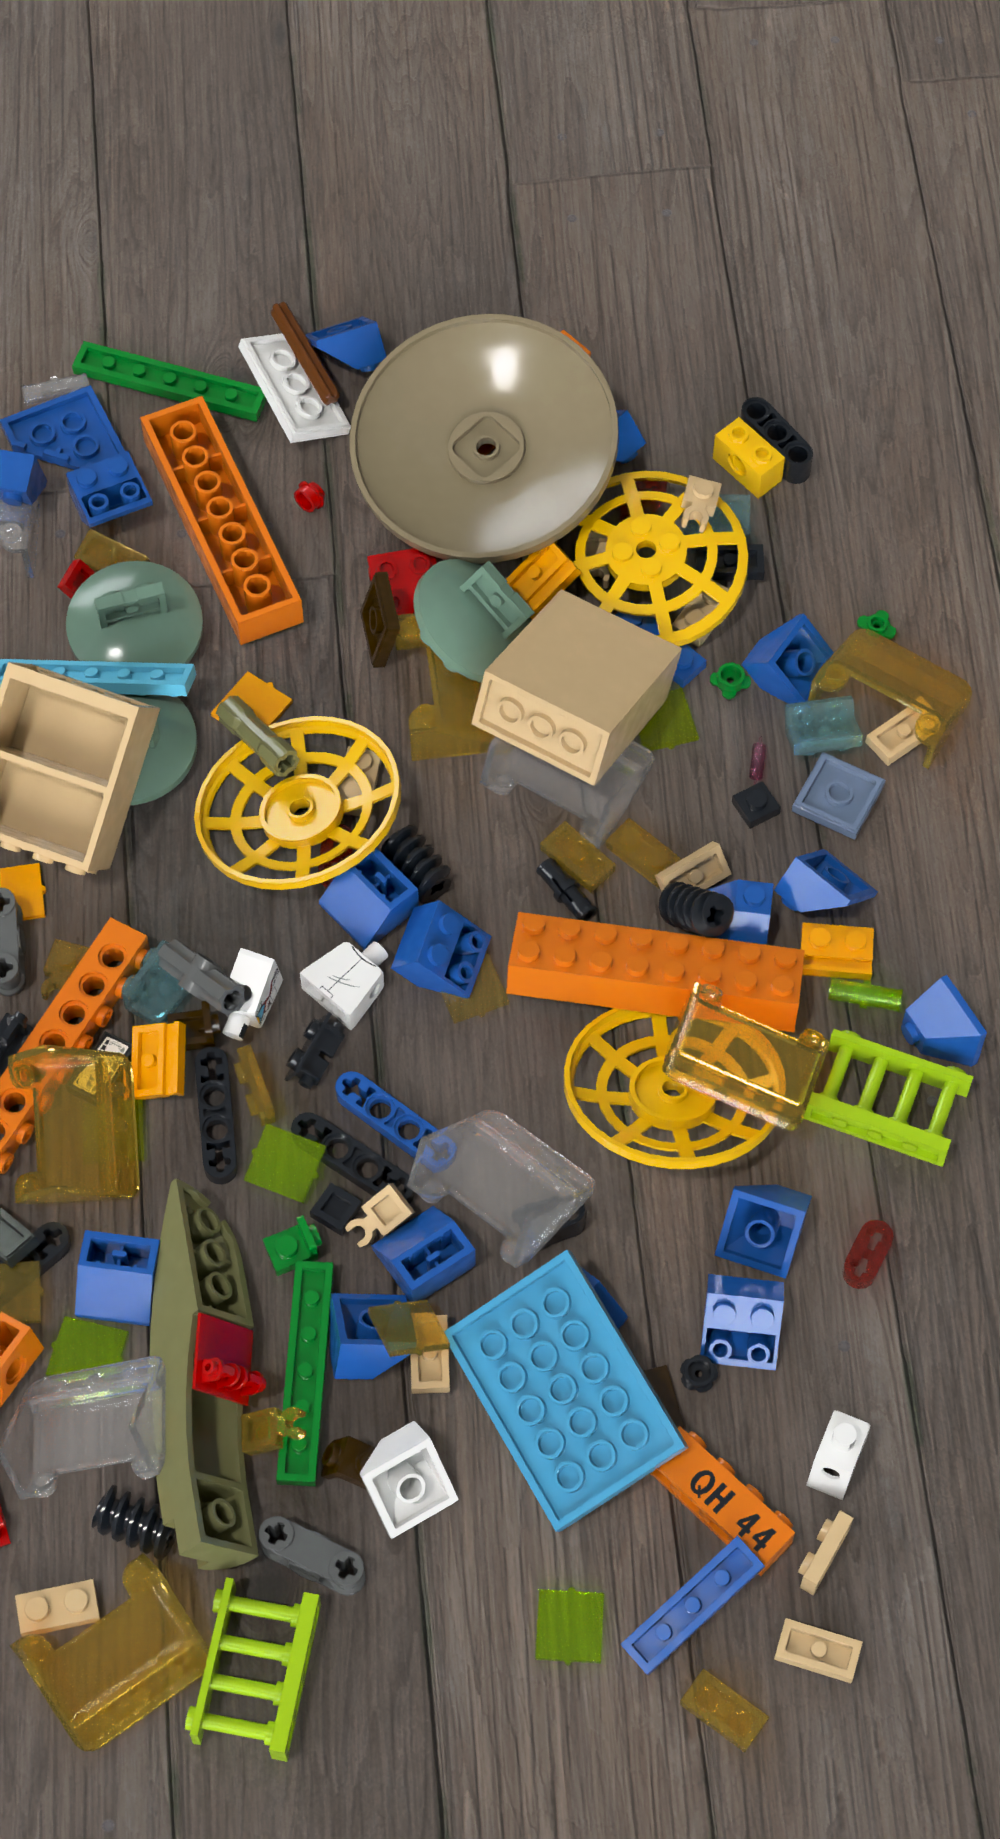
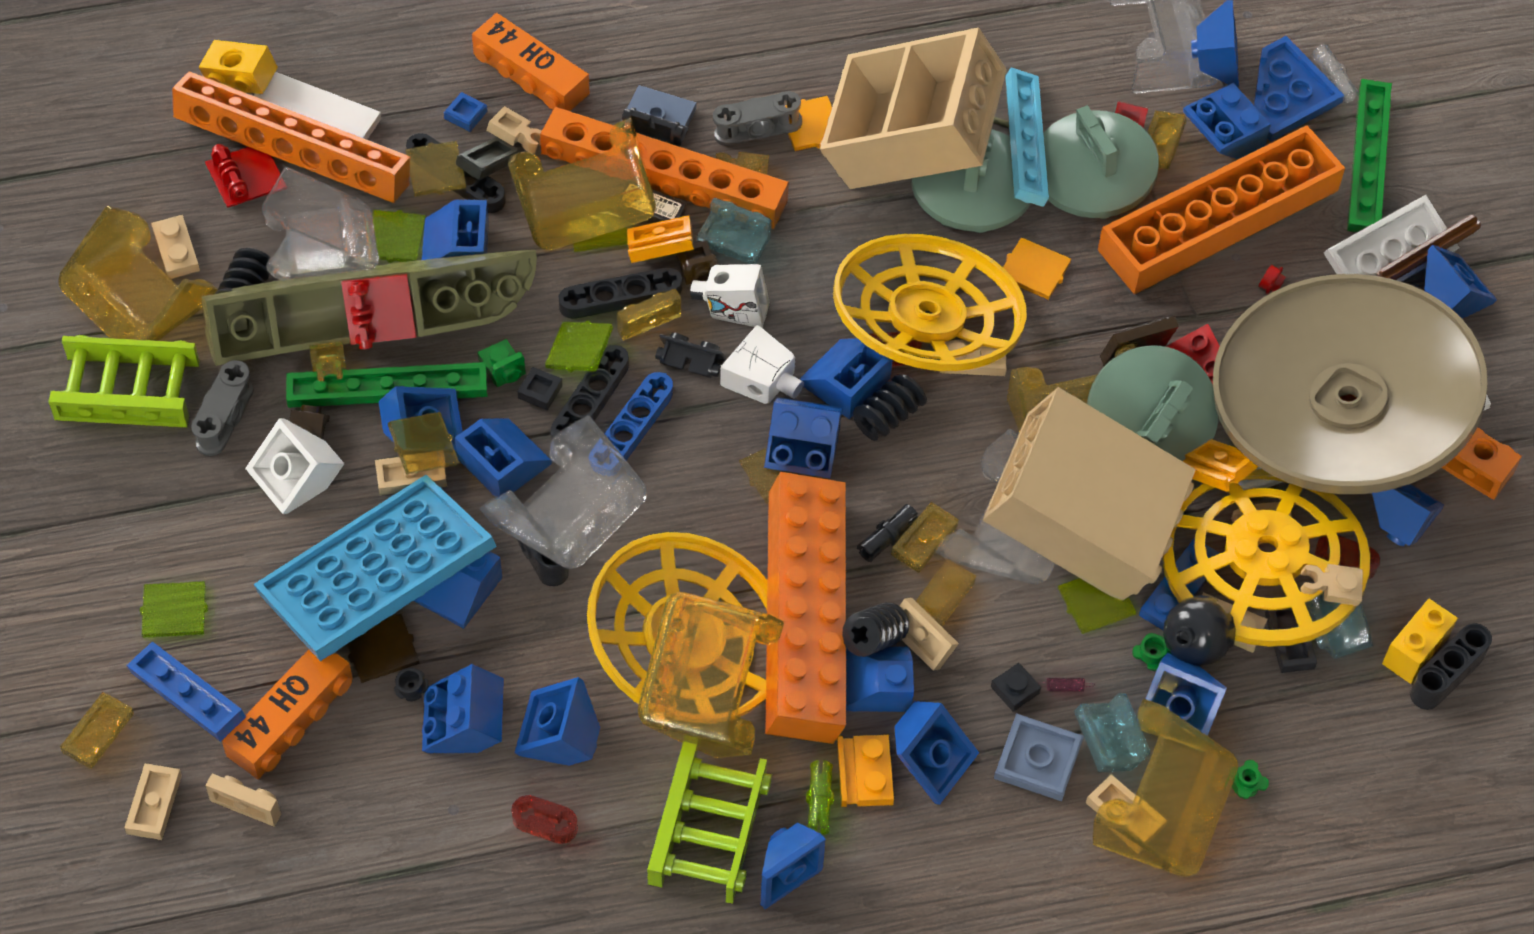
camera: 80 degrees right, 5 degrees down
(201, 977) = (731, 244): dark grey piece -> none
(272, 750) = (977, 272): olive axle -> none
(384, 1212) = (535, 419): tan plate -> none
(727, 629) = (1199, 631): none -> black cylinder
(840, 1452) = (335, 800): white torso -> none

